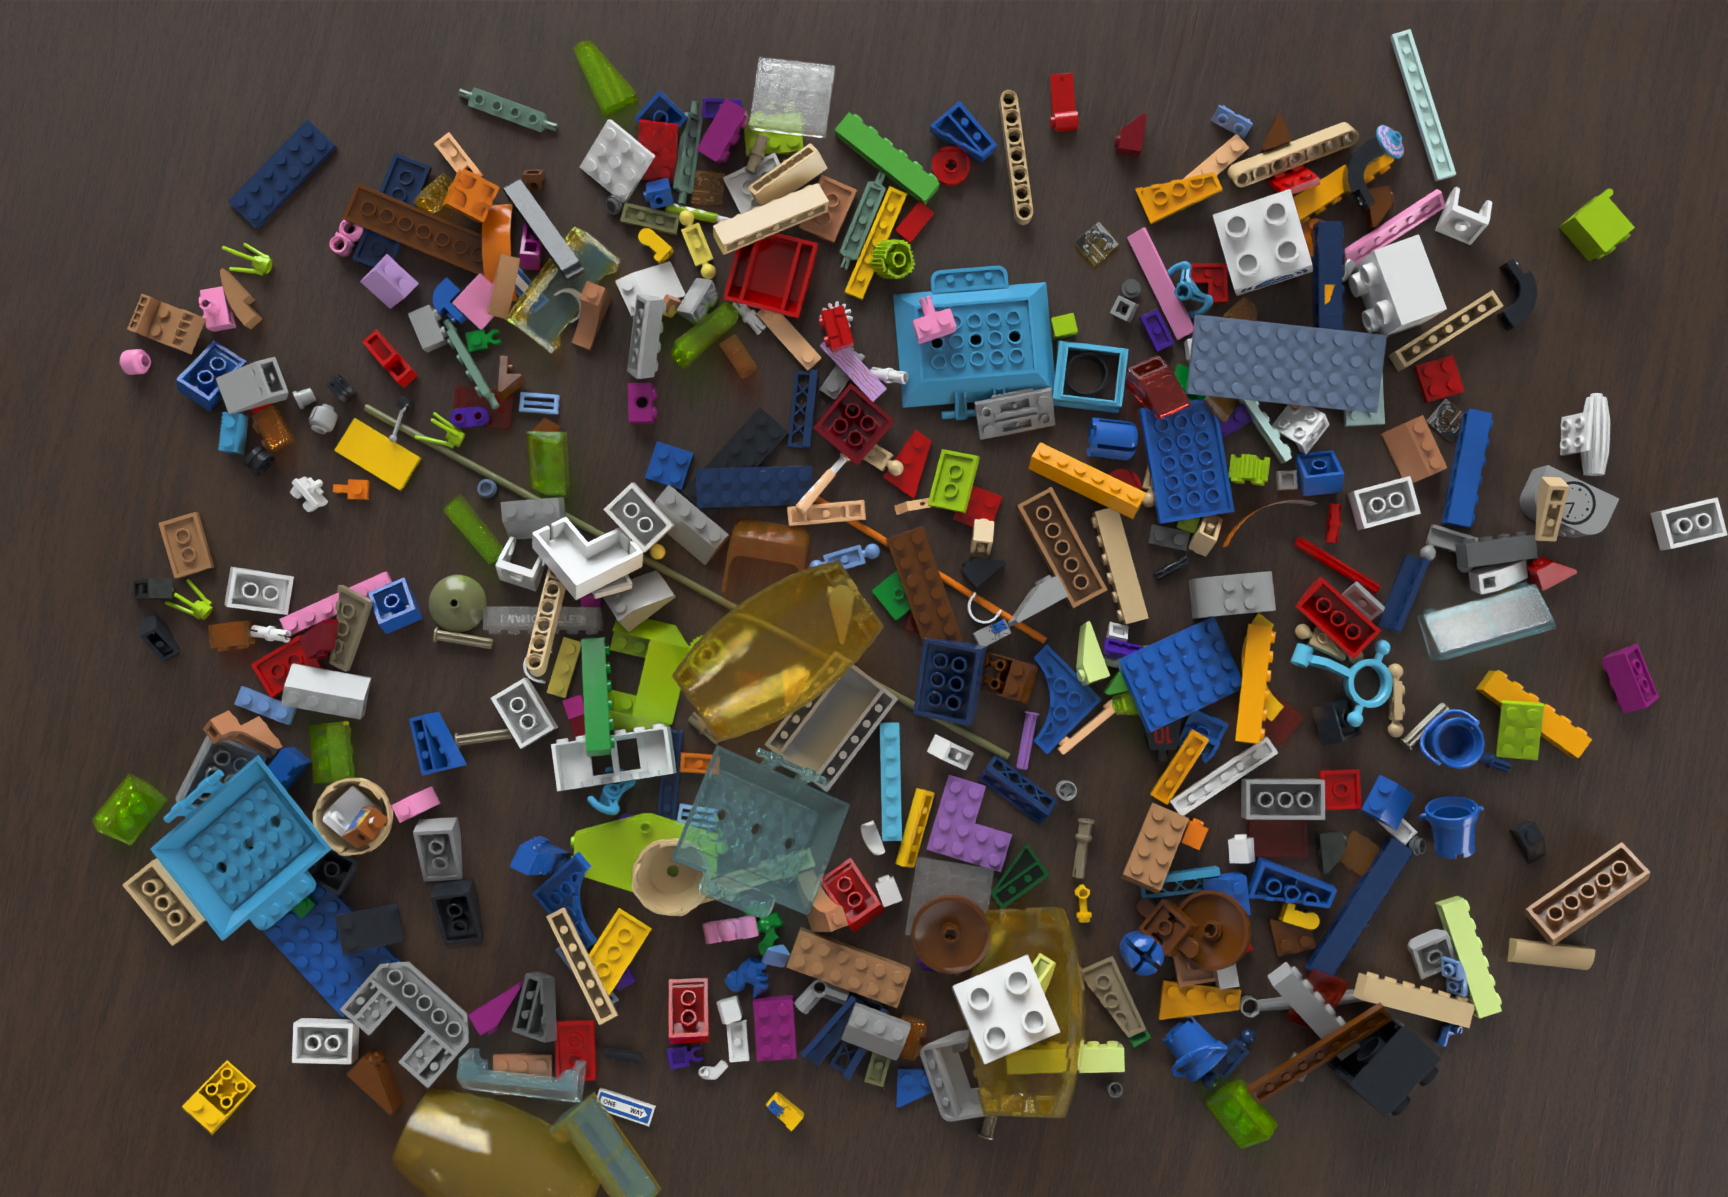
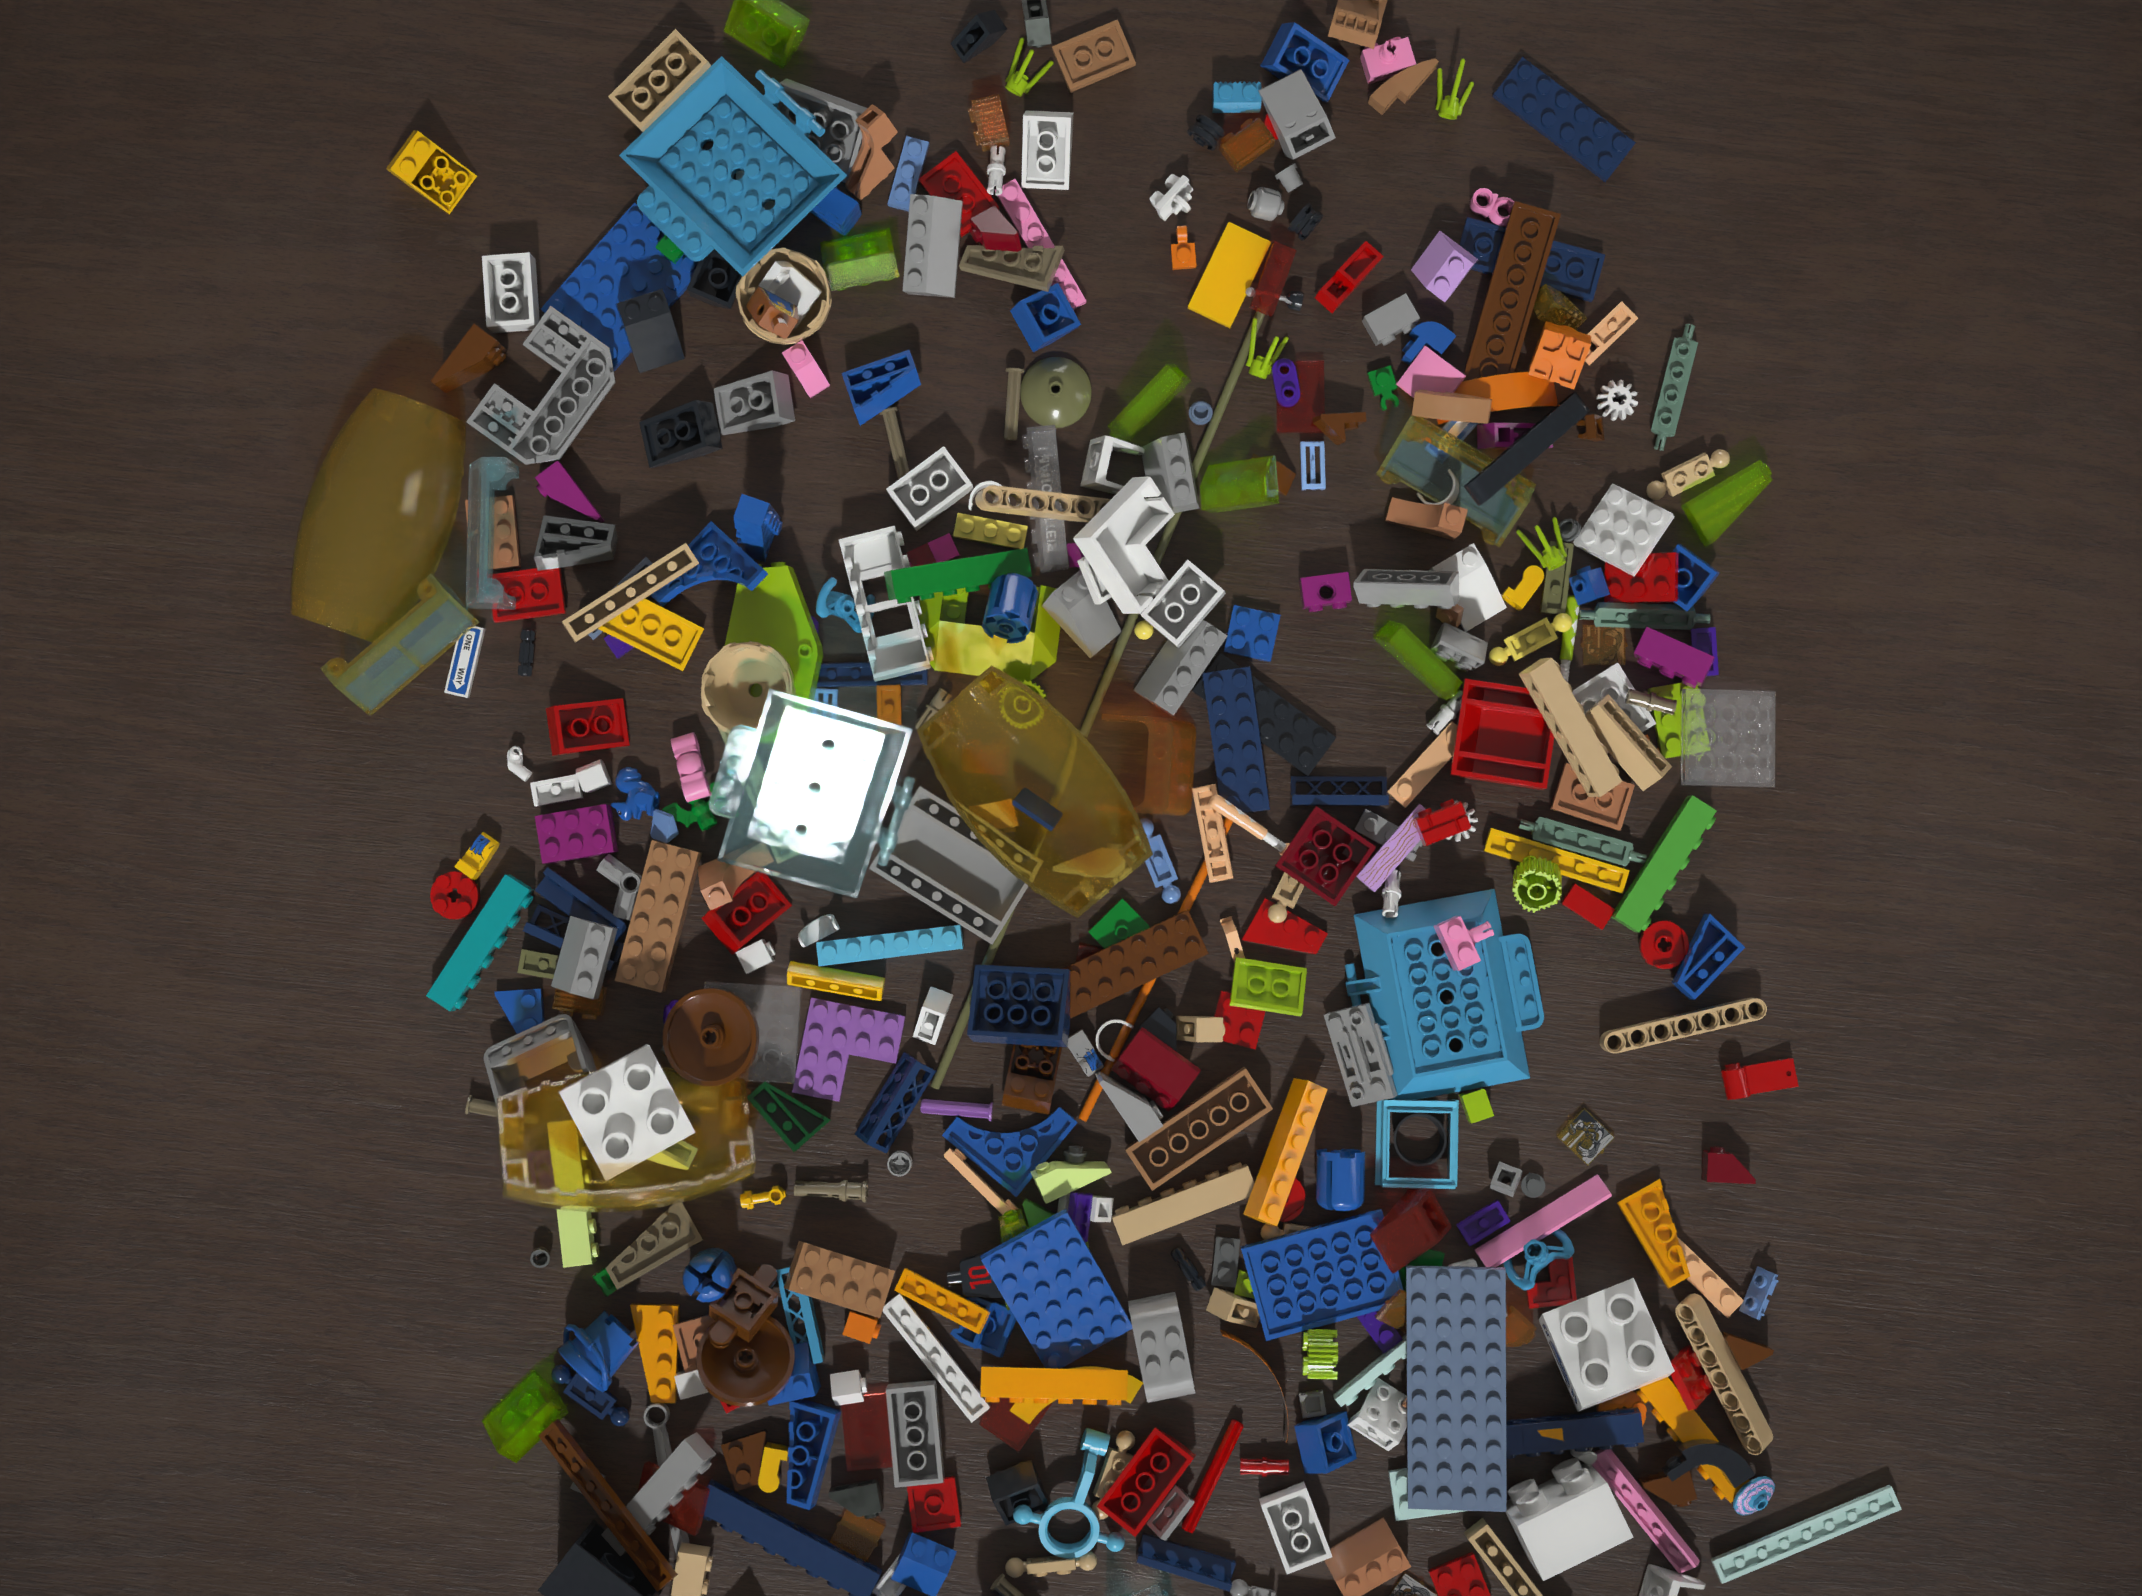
camera: 90 degrees right, 0 degrees up
(384, 419) = (1272, 278): none -> clear red plate
(465, 358) = (1358, 369): sand green plate -> none
(519, 158) = (1615, 408): none -> white gear
(578, 106) = (1688, 474): none -> tan plate
(627, 656) = (1010, 607): none -> blue cylinder
(633, 219) = (1553, 557): none -> lime plant
(681, 1056) = (531, 722): dark purple plate -> none
(738, 356) = (1395, 704): clear orange brick -> none
(792, 650) = (1037, 809): none -> slope
(820, 1142) = (443, 903): none -> red plate
(855, 1115) = (480, 943): none -> teal brick
(1011, 577) = (1155, 1069): none -> dark red slope
(1072, 649) = (1075, 1154): none -> dark grey plate

